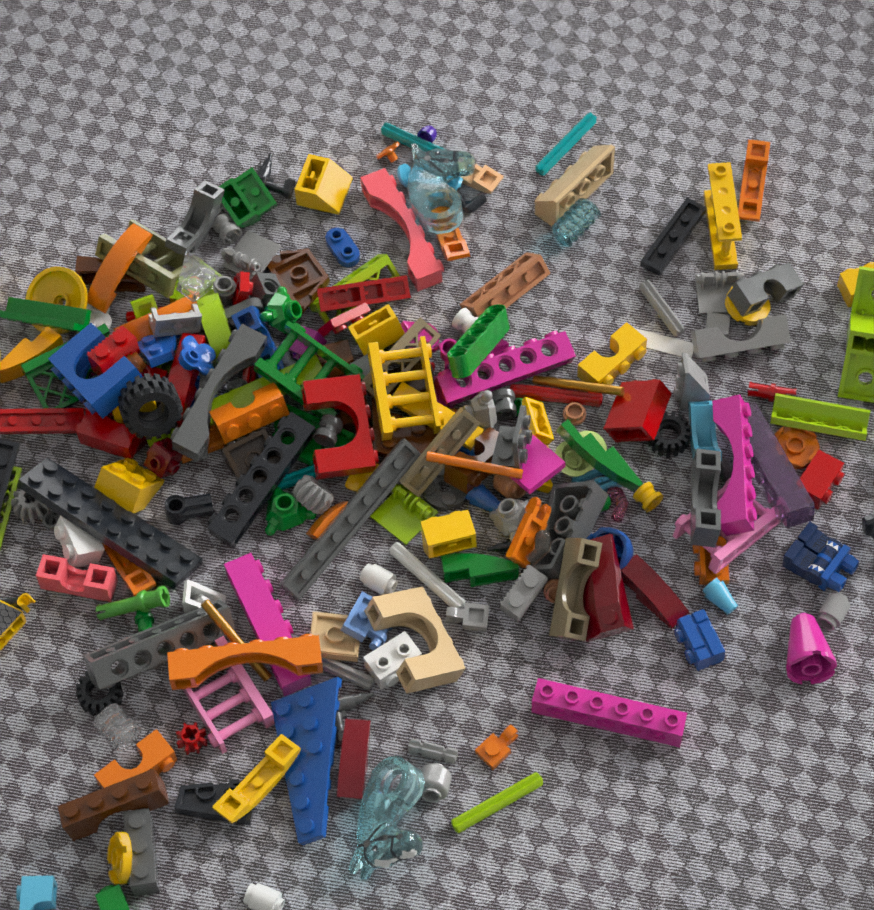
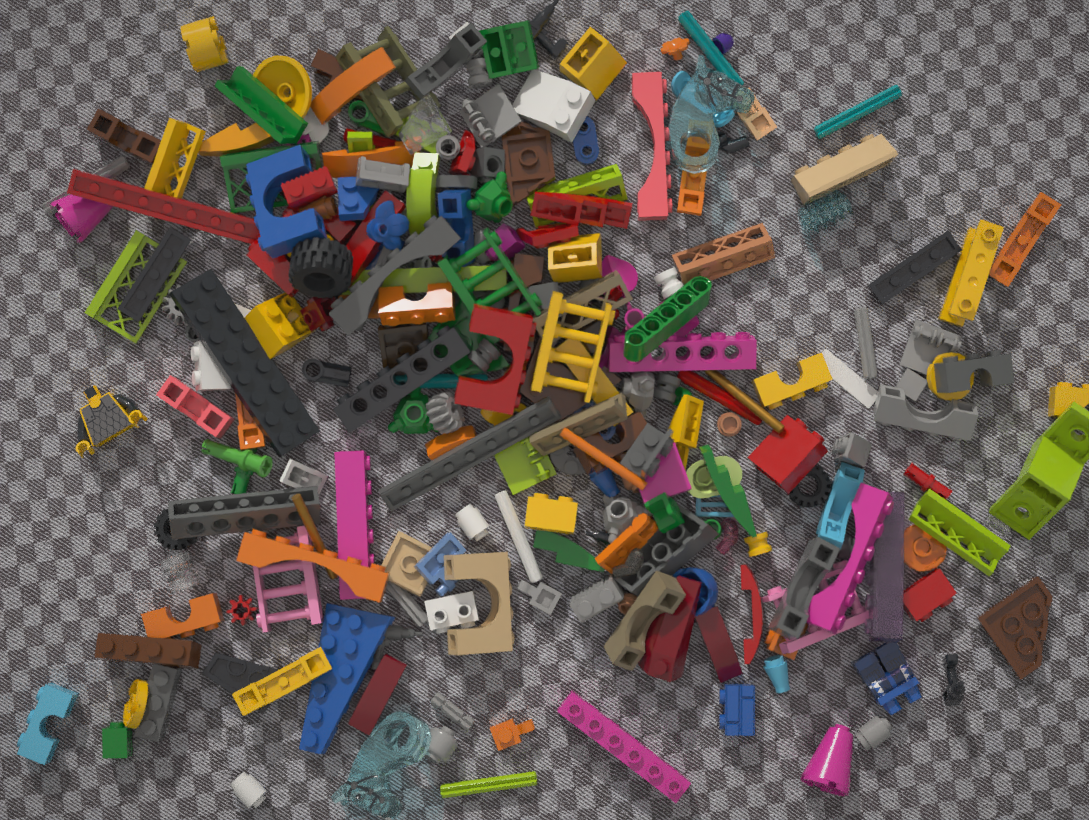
camera: 25 degrees right, 25 degrees up
(136, 288) = (368, 122): none -> green piece
(304, 224) = (554, 104): none -> white slope
(550, 490) = (665, 512): none -> green panel
(658, 532) = (748, 582): none -> red slope

